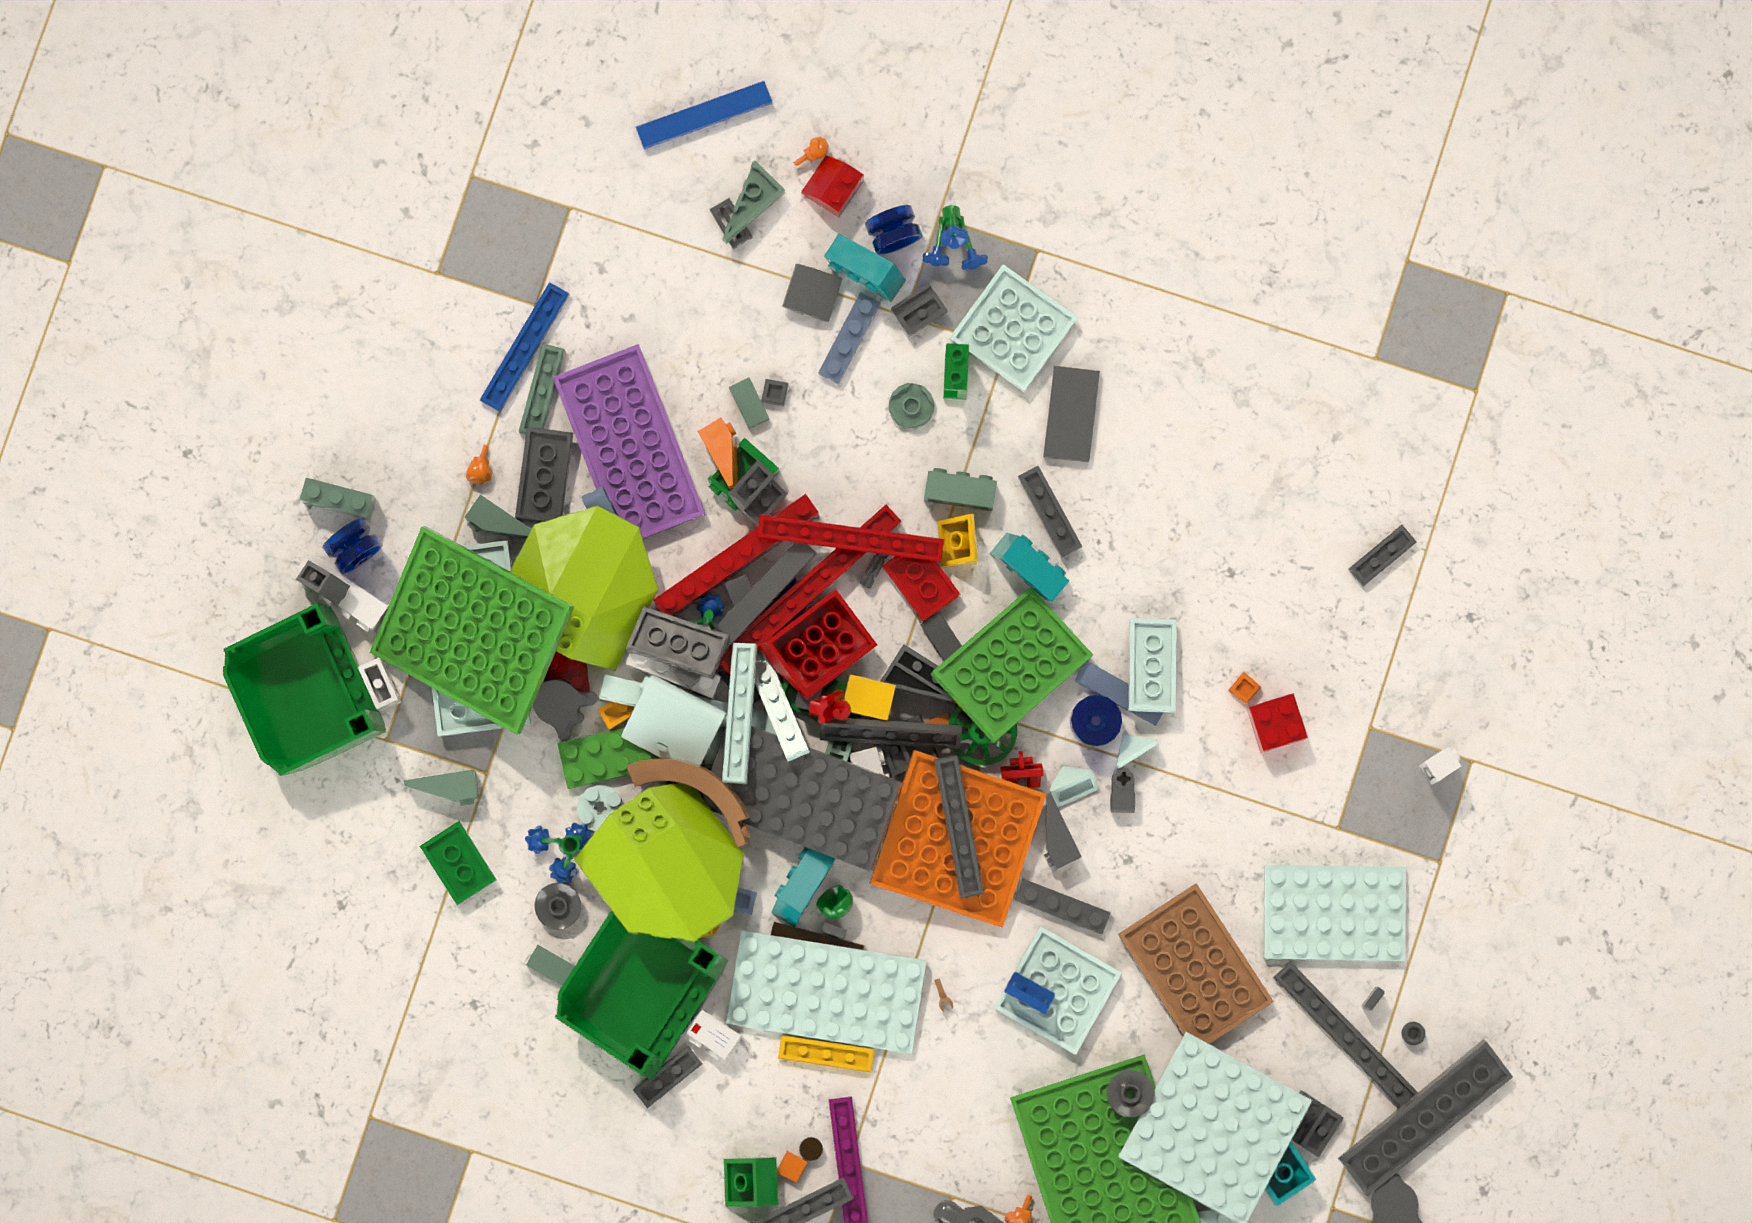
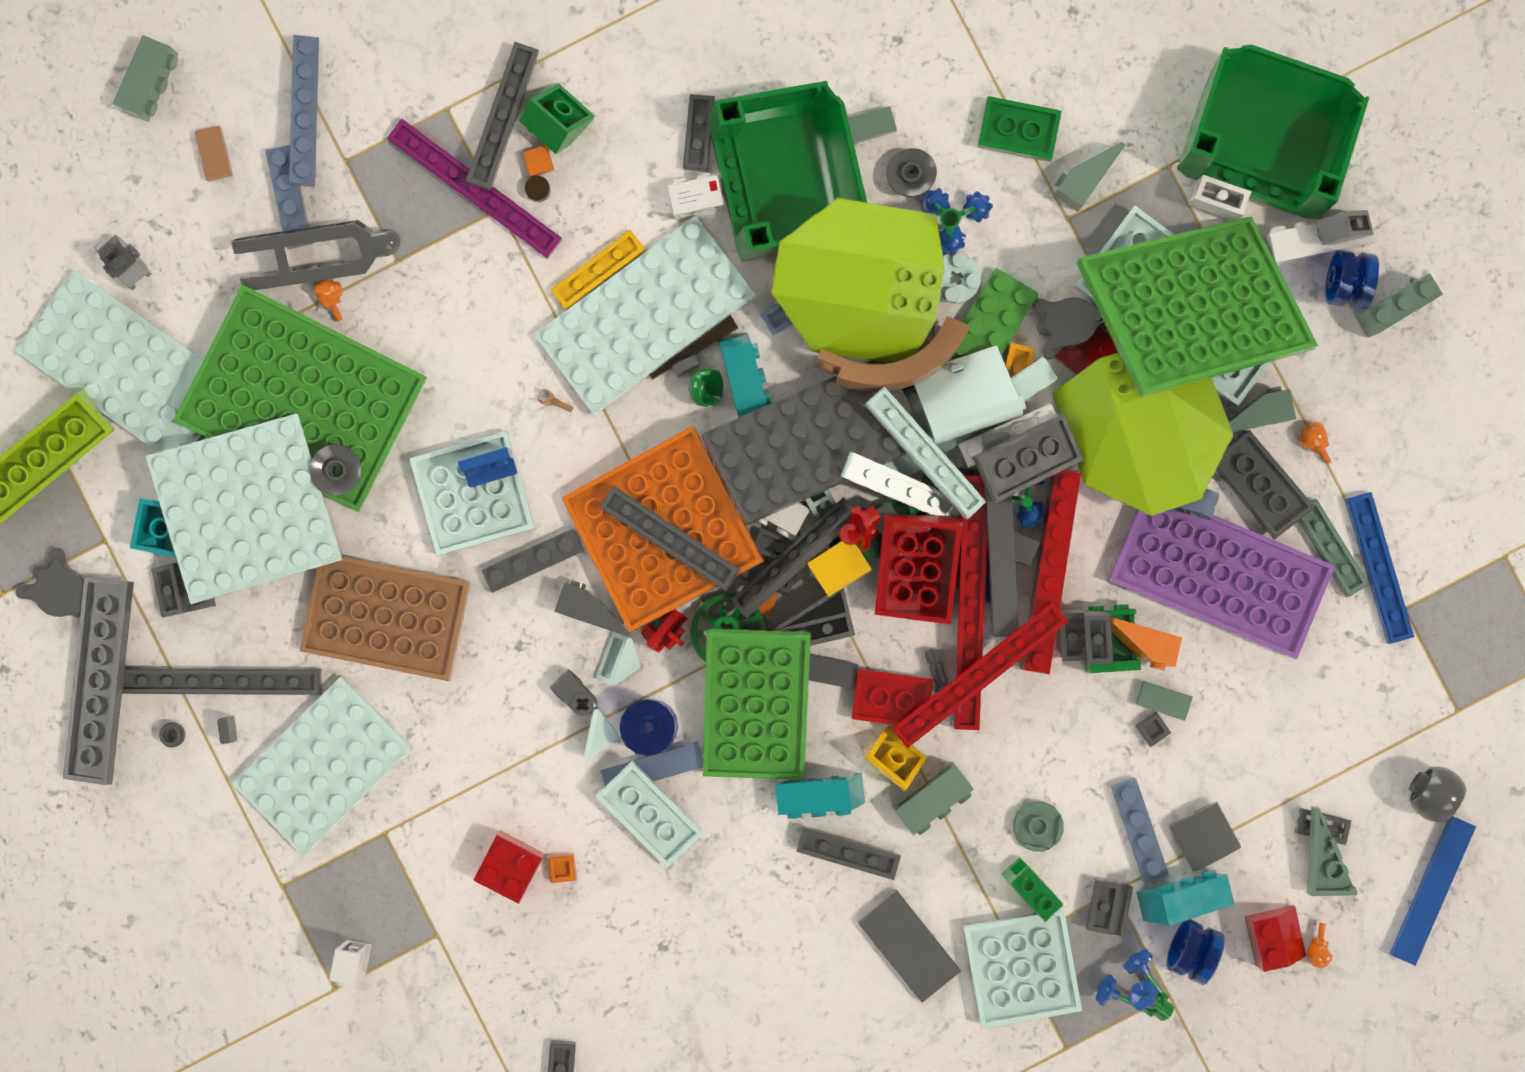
camera: 130 degrees right, 5 degrees up
(640, 173) = (1437, 793): none -> dark grey wheel

